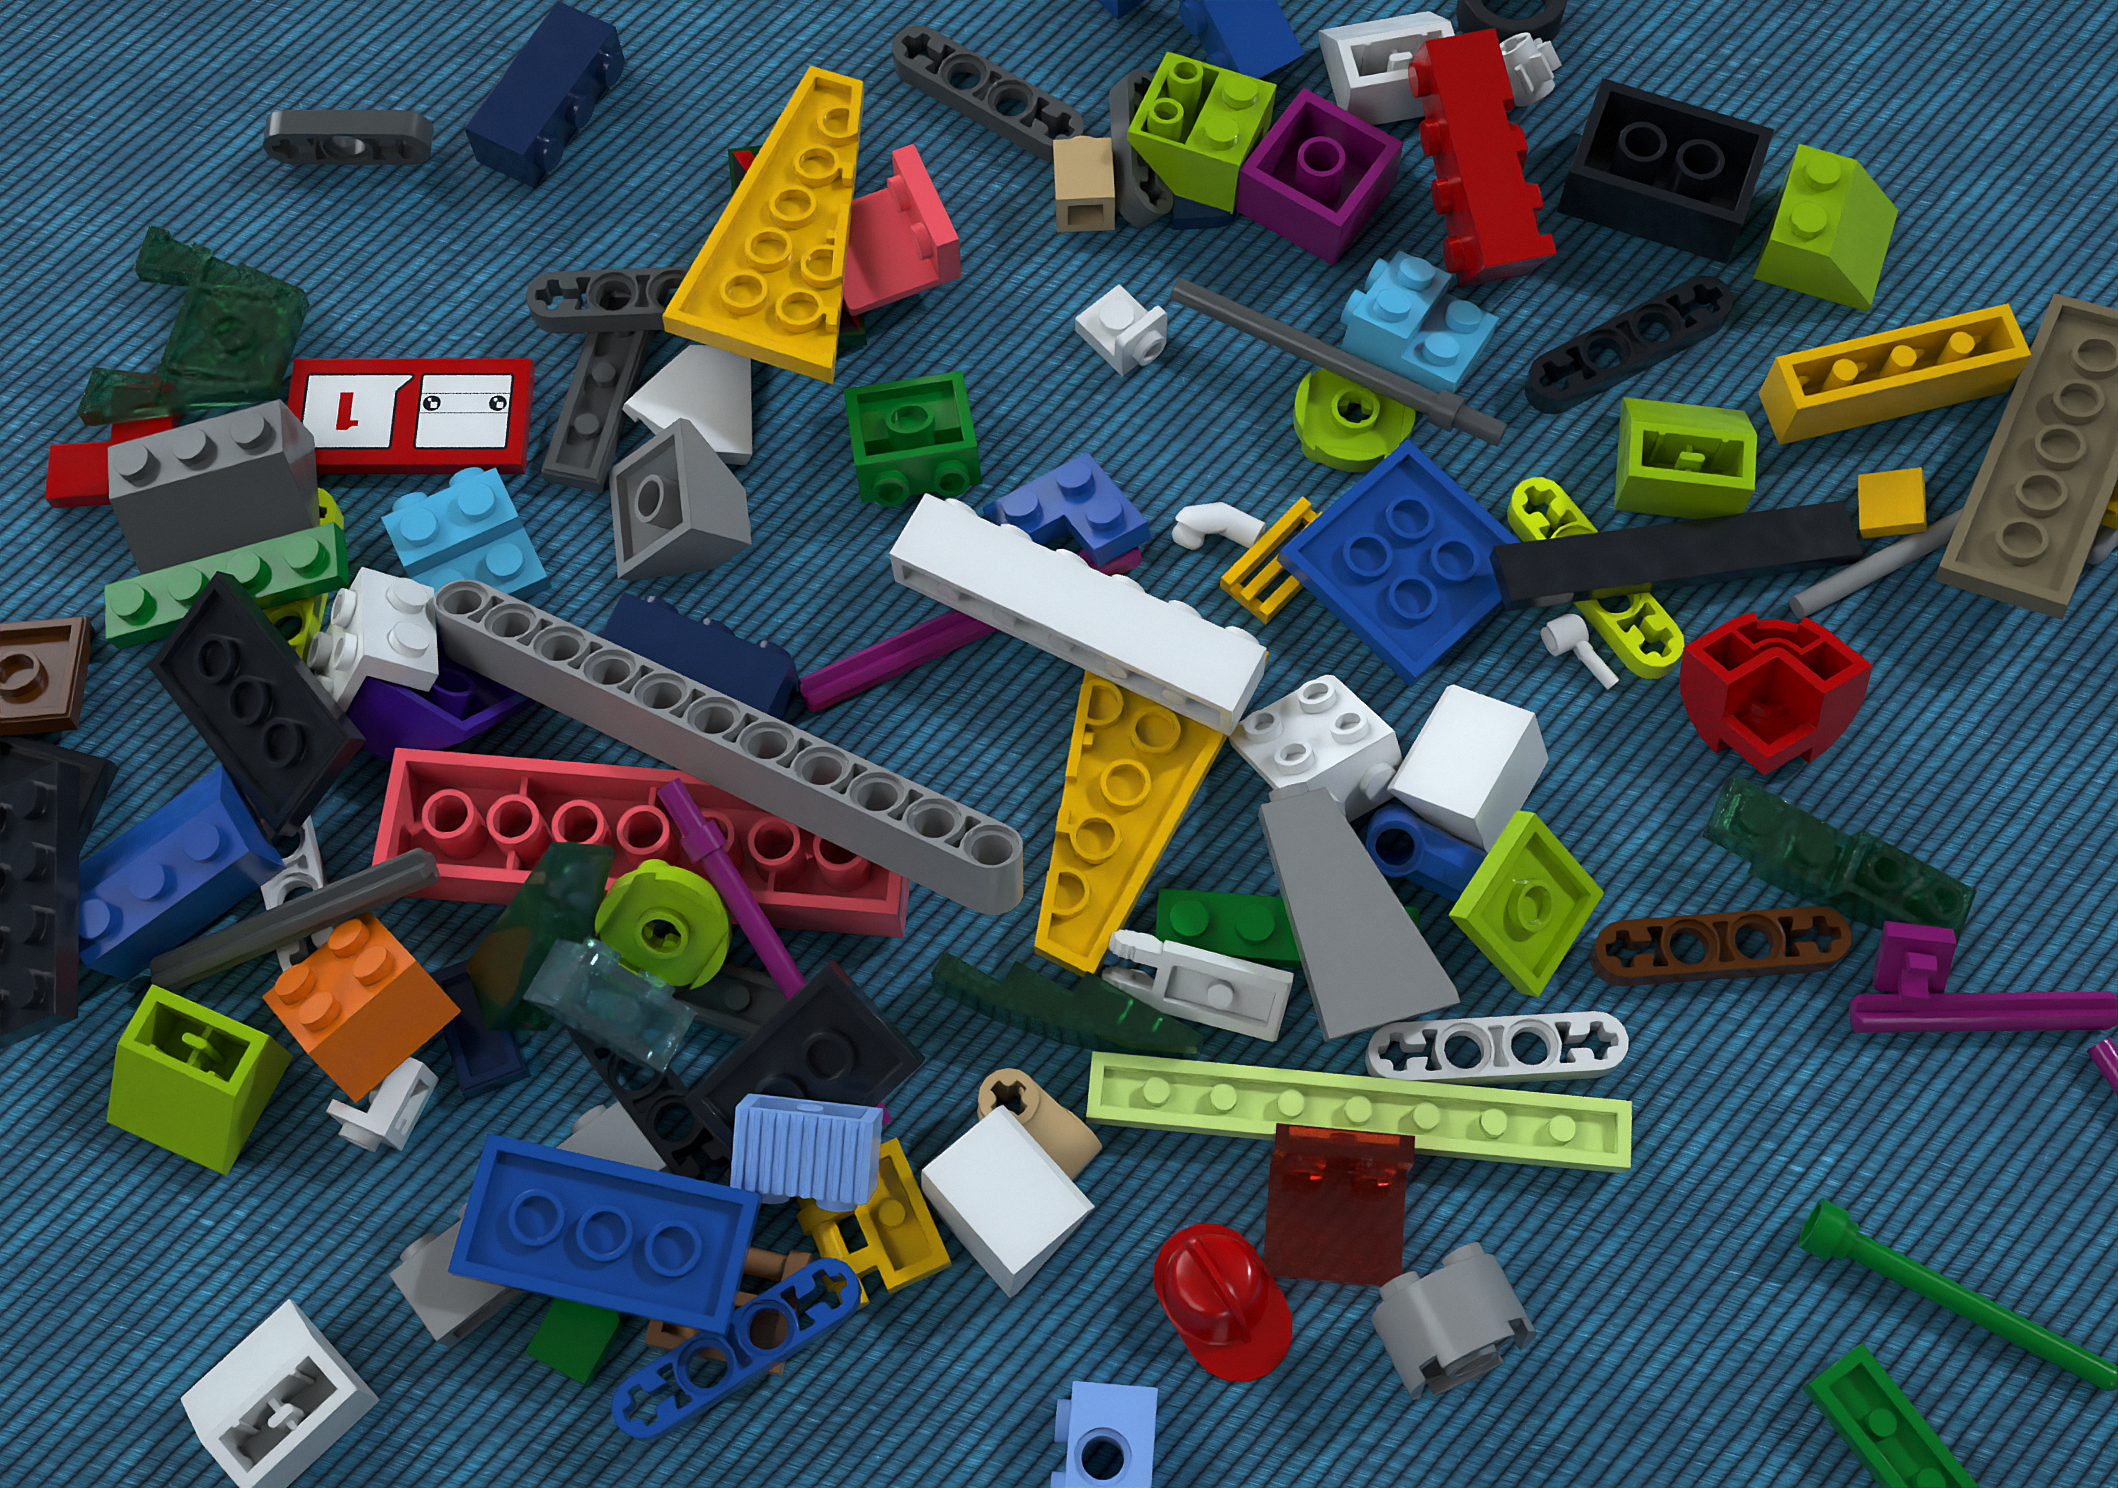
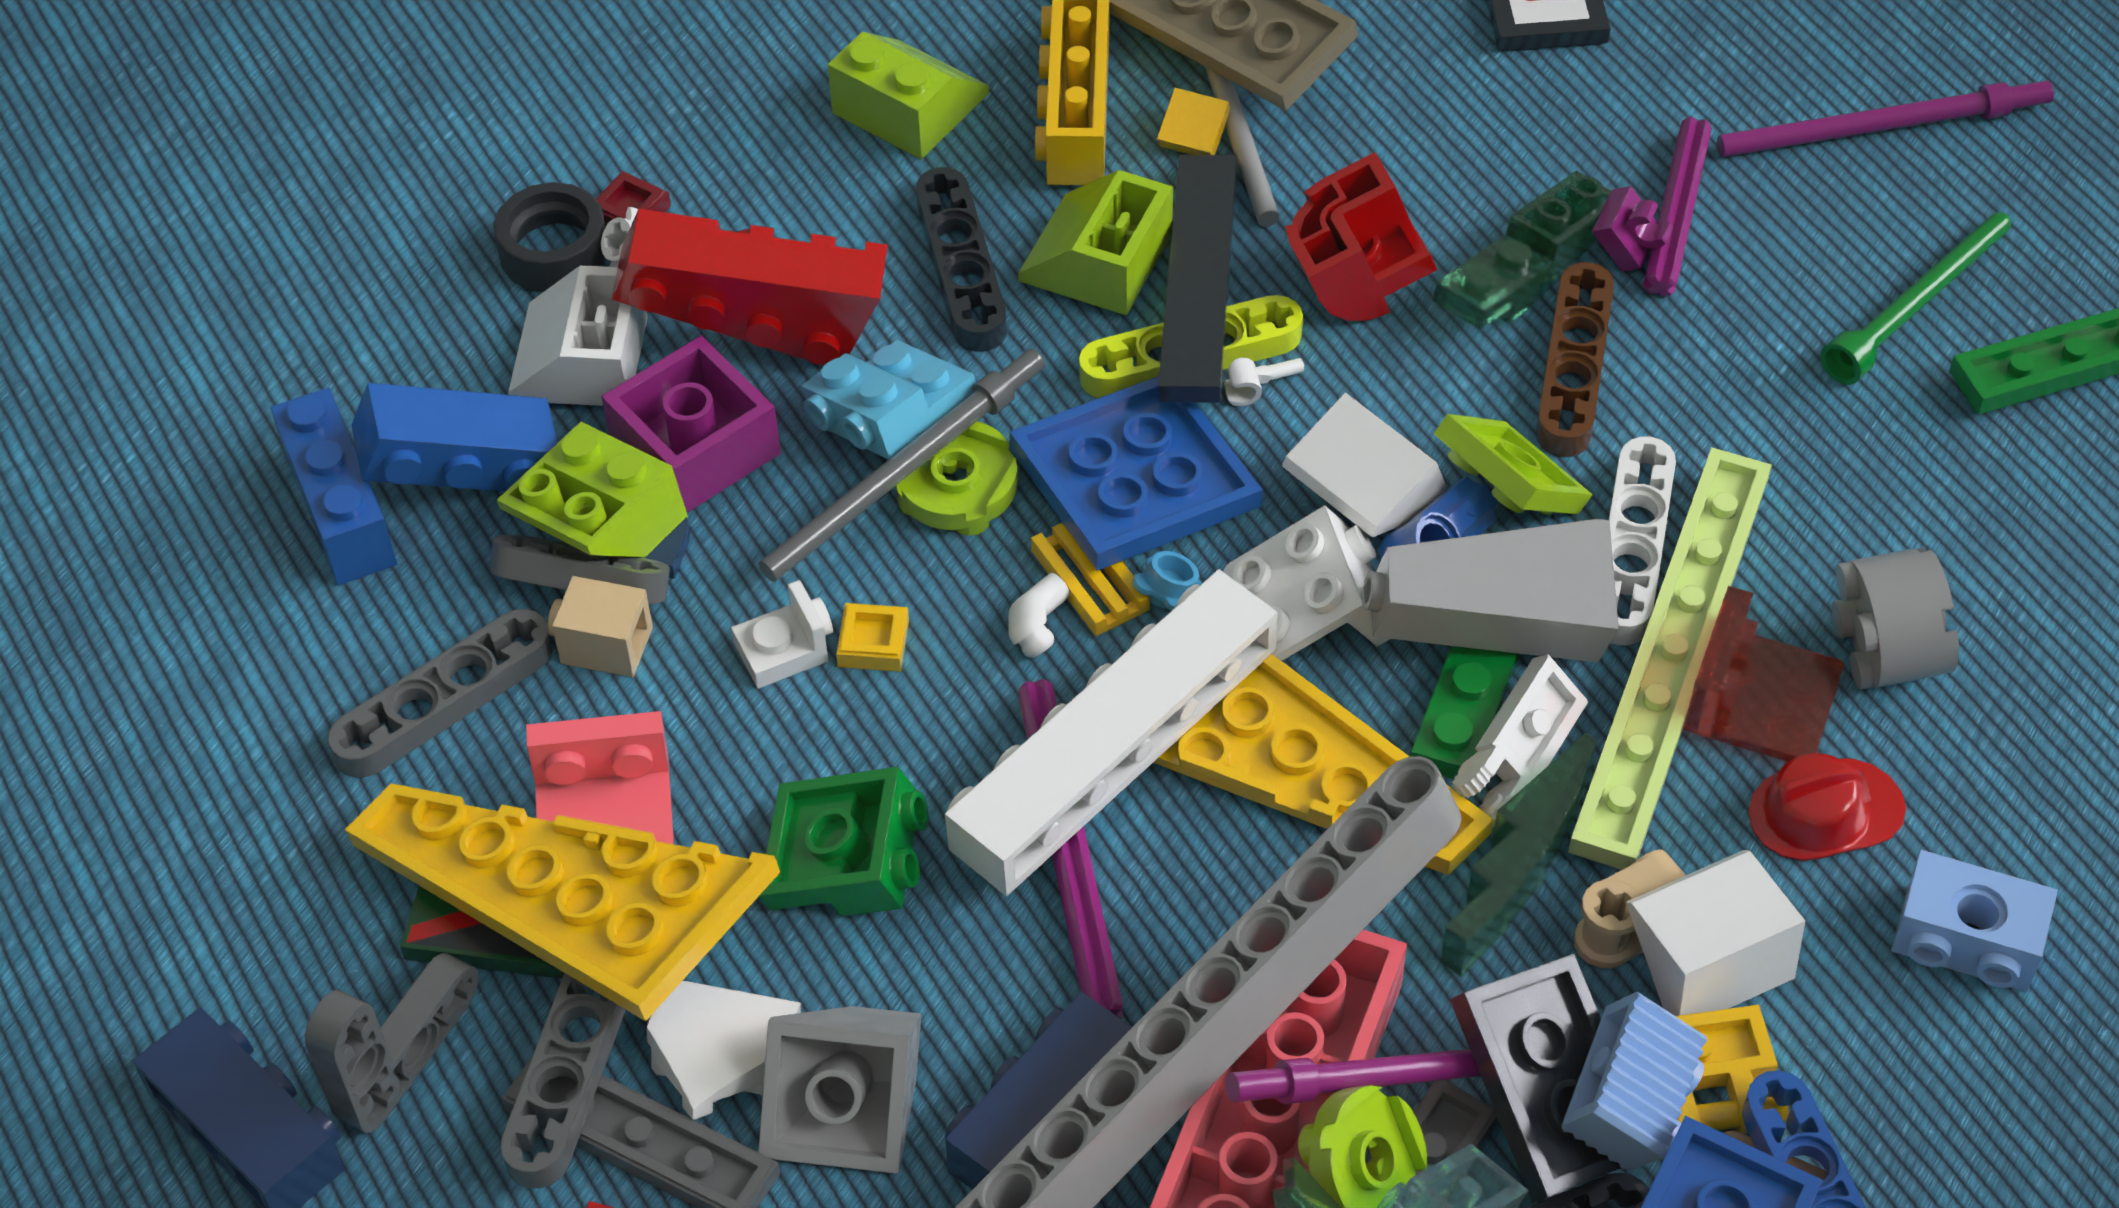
camera: 75 degrees left, 15 degrees down
(591, 172) = (372, 1067): none -> dark grey beam
(1075, 500) = (972, 713): blue plate -> none
(1153, 401) = (872, 637): none -> yellow tile
(1305, 622) = (1166, 578): none -> dark azure plate
(1585, 53) = (631, 192): none -> dark red tile
(1665, 170) = (804, 164): black brick -> none

